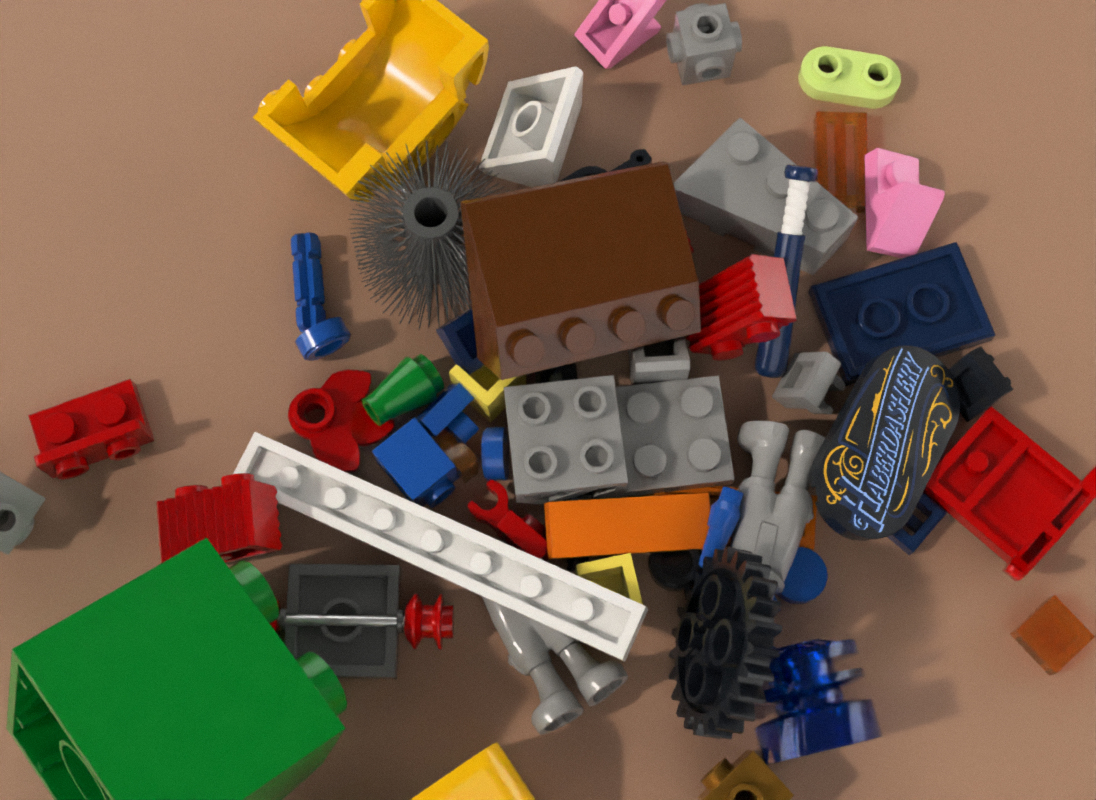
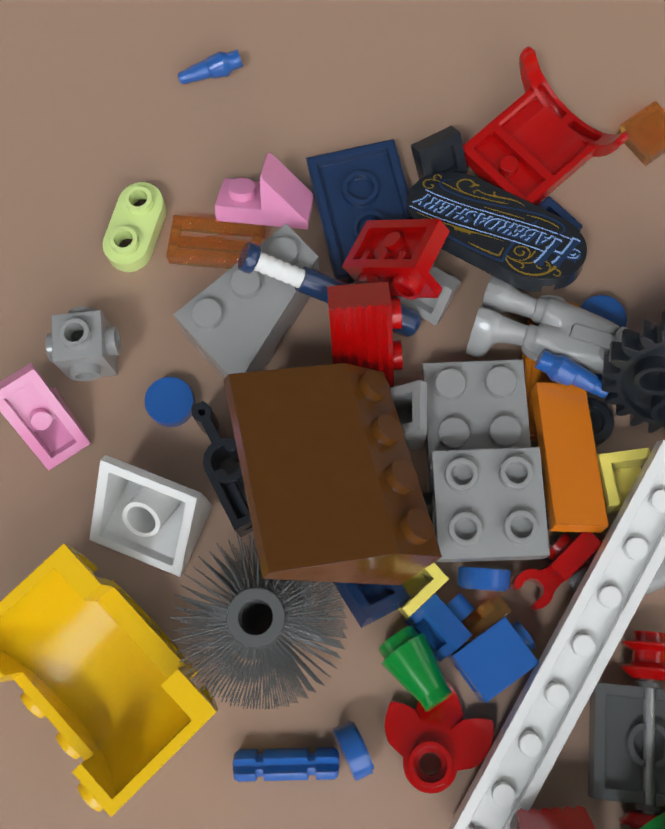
camera: 80 degrees left, 0 degrees up
(657, 134) = (169, 401): none -> blue tile
(835, 332) = (398, 254): none -> red bracket
(1061, 133) = (214, 67): none -> blue piece

